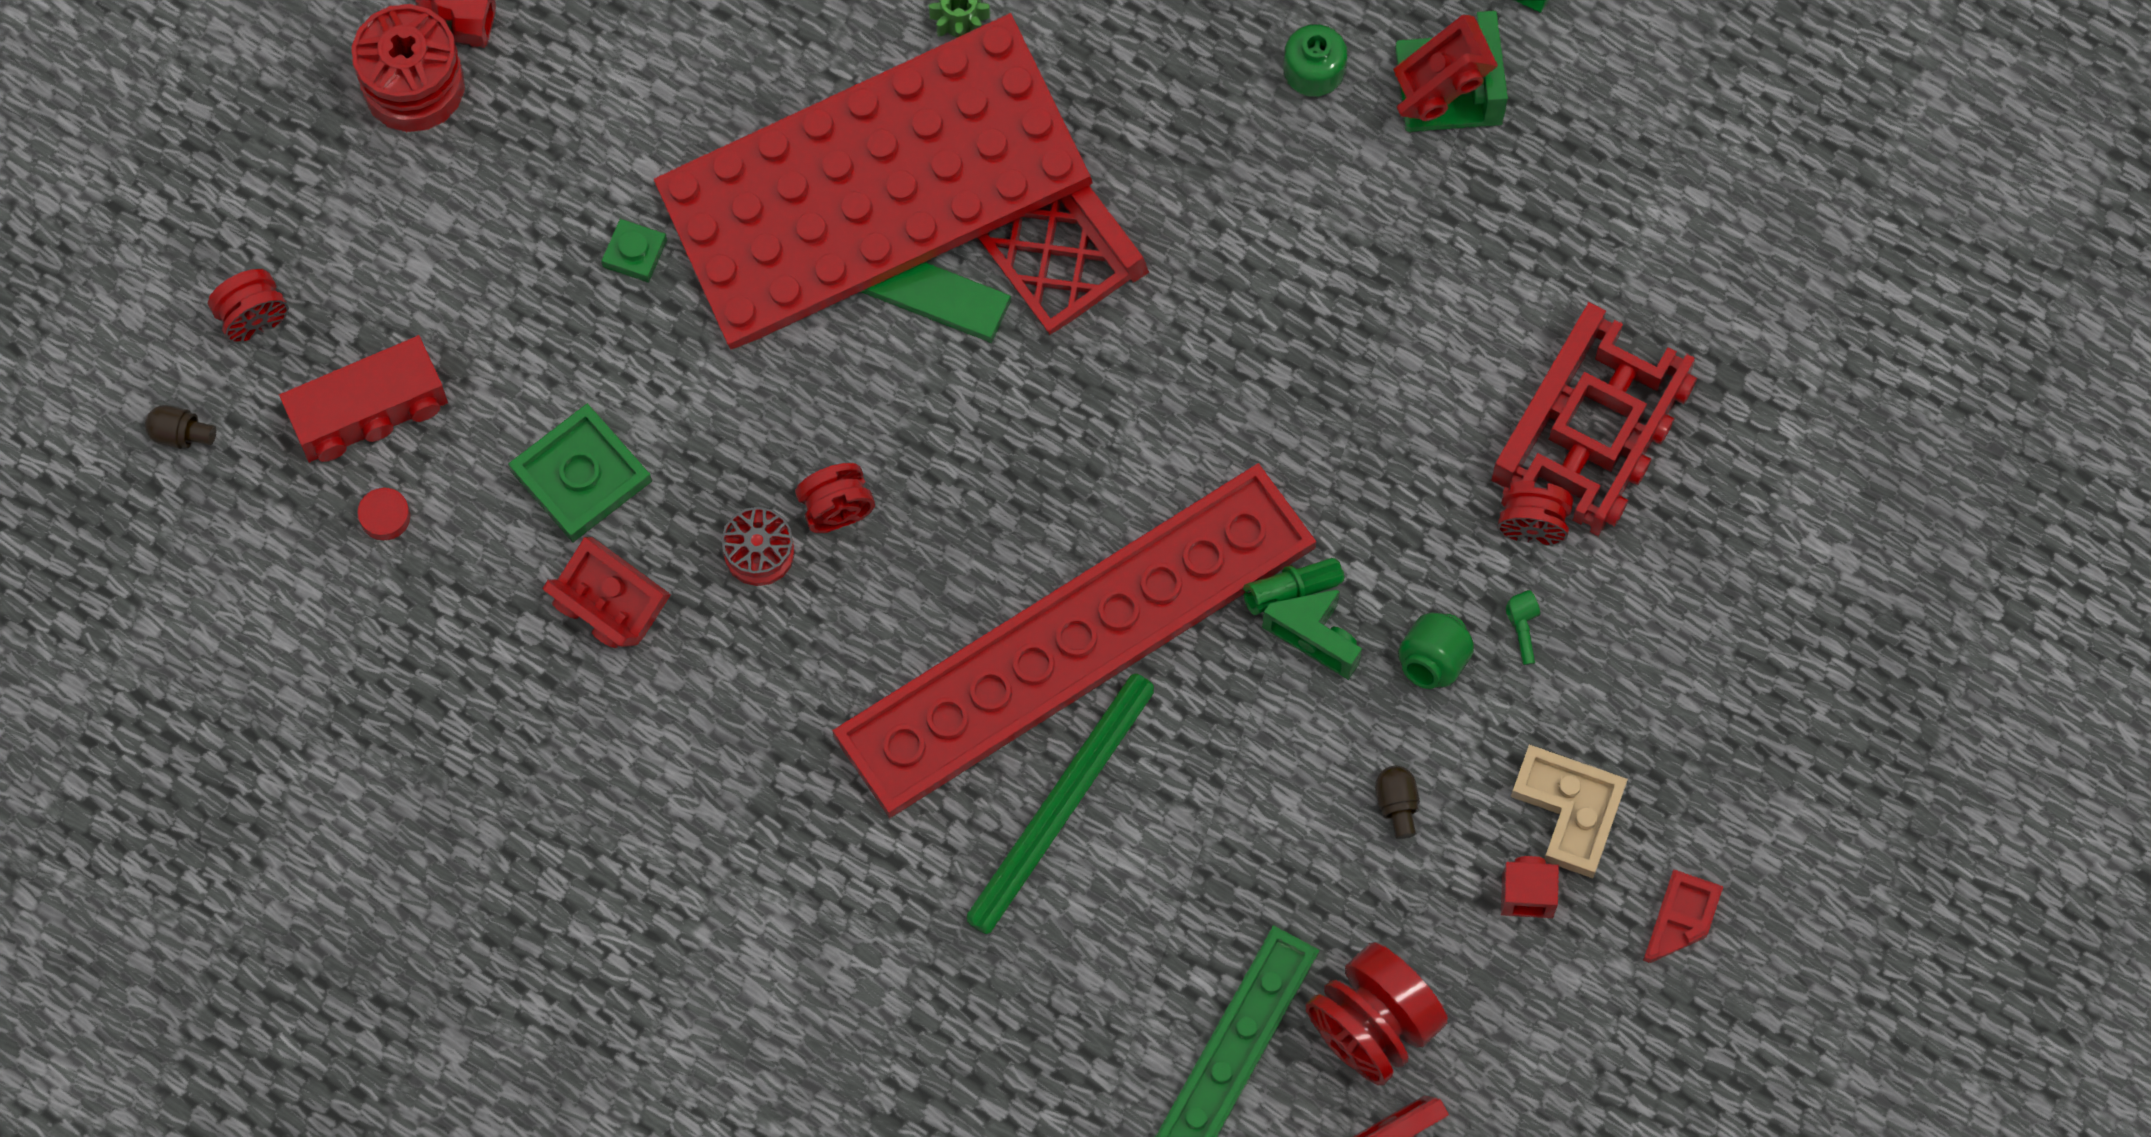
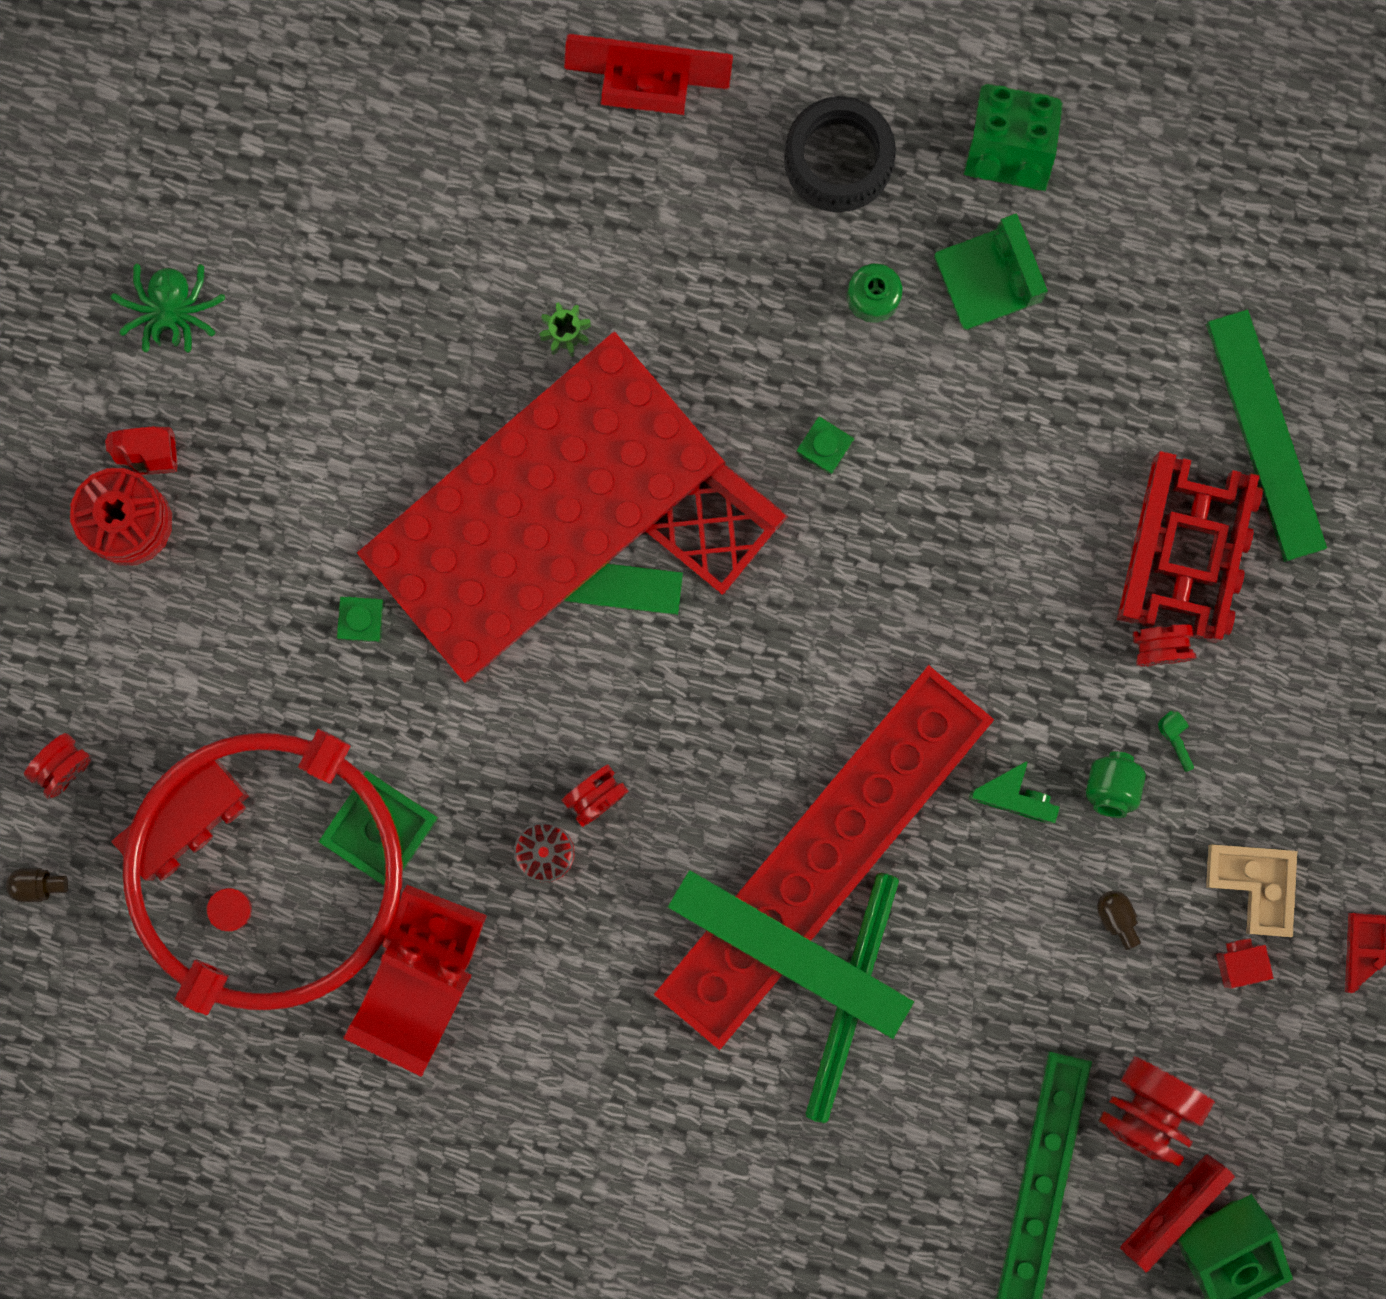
camera: 20 degrees left, 15 degrees up
(327, 572) = (203, 982): none -> red piece
(552, 660) = (408, 1006): none -> red panel
(1004, 727) = (791, 954): none -> green tile
(1212, 208) = (824, 445): none -> green plate
(1293, 584) = (985, 761): green axle -> none
(1444, 69) = (986, 277): red bracket -> none
(1719, 330) = (1266, 435): none -> green tile

